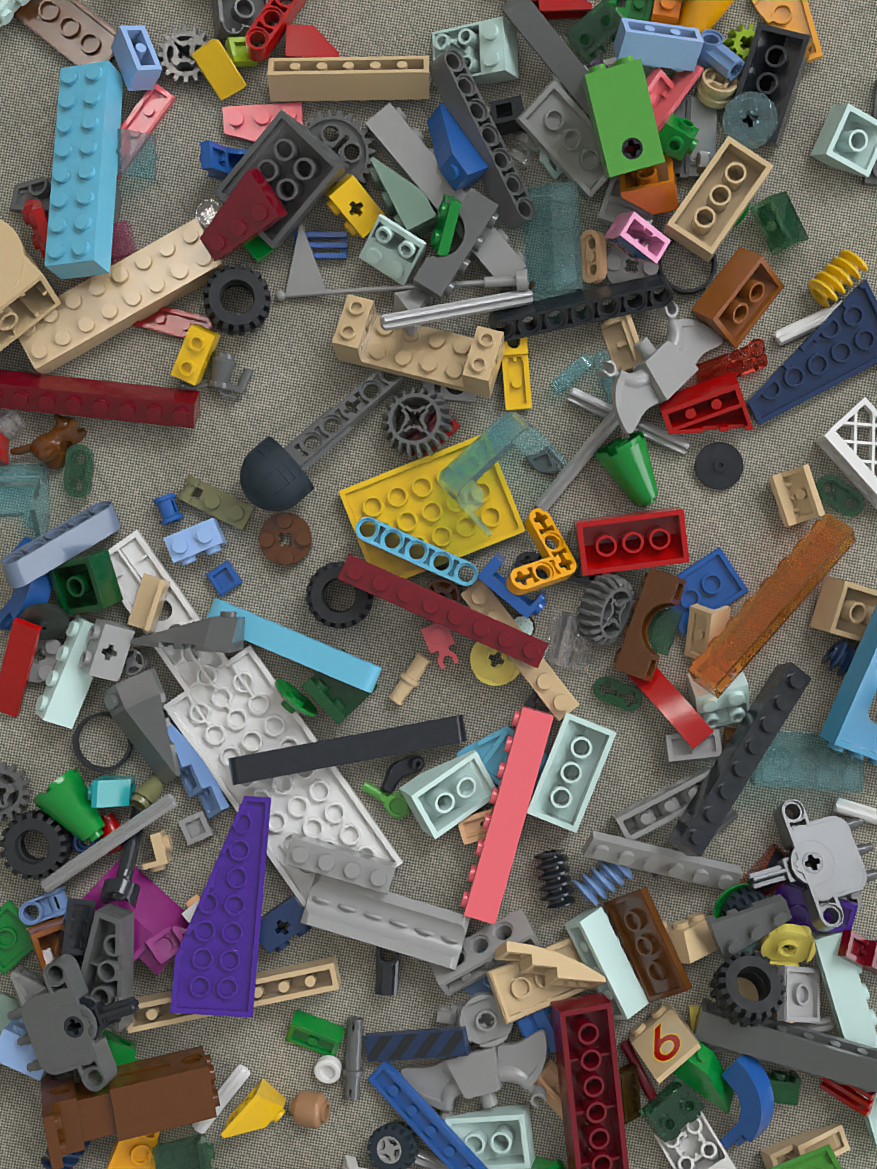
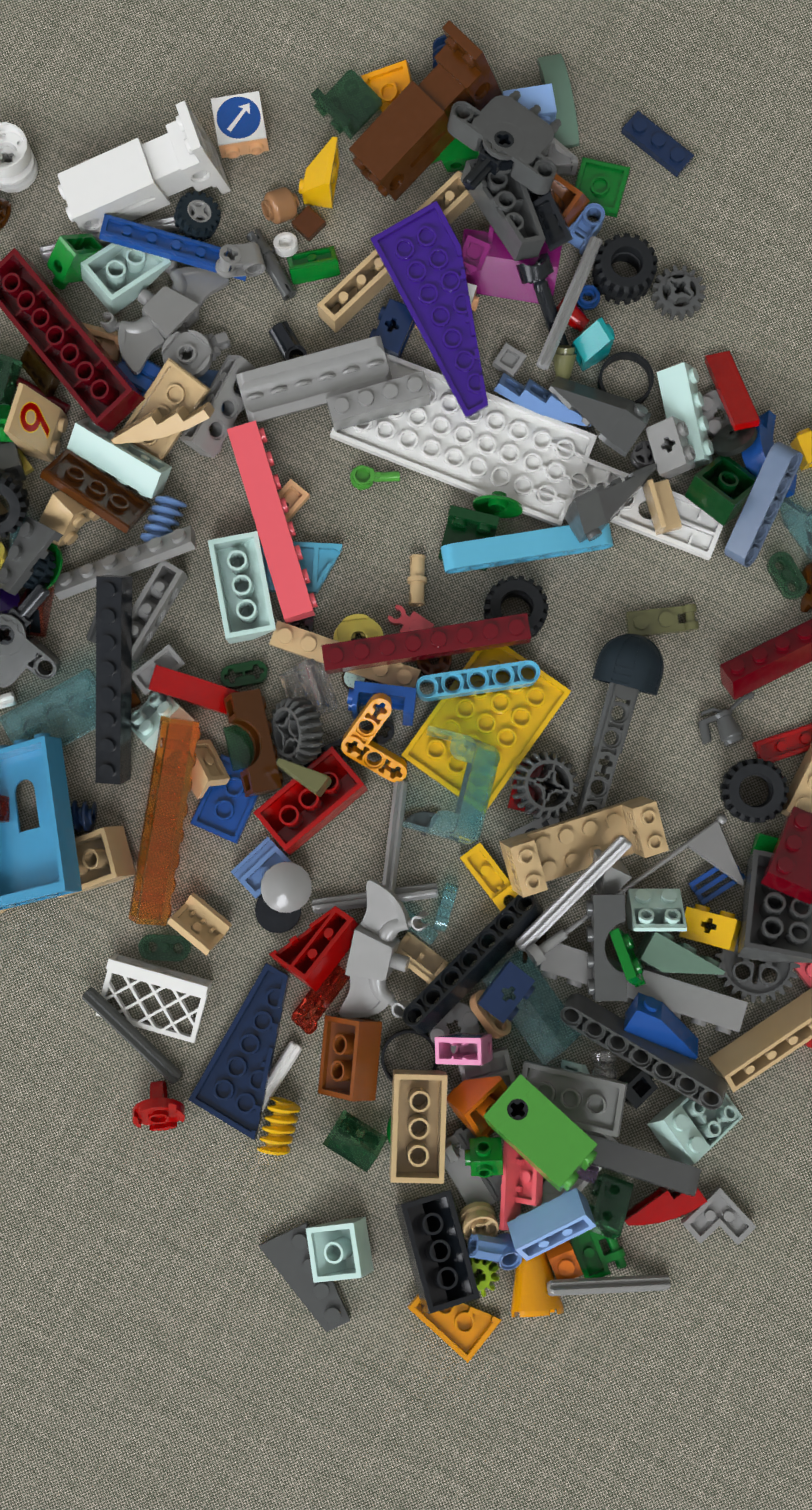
camera: 150 degrees right, 5 degrees down
(69, 806) = (620, 310): green cone -> none
(161, 845) = (524, 327): tan bracket -> none
(168, 509) = (696, 590): blue bush -> none
(194, 541) = (658, 579): light blue brick -> none
(195, 354) = (757, 725): yellow brick -> none
(224, 578) = (615, 566): blue tile -> none
(226, 1093) = (353, 178): white axle -> none
(294, 1076) = (308, 223): none -> reddish brown tile
(300, 538) = (597, 638): reddish brown plate -> none
(347, 749) = (430, 492): black beam -> none
(380, 1077) = (243, 258): none -> light grey piece
(399, 769) = (378, 506): black arm -> none
(417, 1044) = (228, 304): dark blue tile -> none
(448, 793) = (328, 509): light aqua slope -> none
(555, 878) = (200, 498): black piece -> none
(559, 273) = (492, 997): none -> dark blue brick
(621, 555) = (309, 778): none -> olive slope
(630, 467) = (349, 859): green cone -> none
(701, 479) = (286, 887): none -> light grey dish
(710, 510) = (253, 867): none -> medium blue plate
(759, 106) = (449, 1210): clear light blue plate -> none

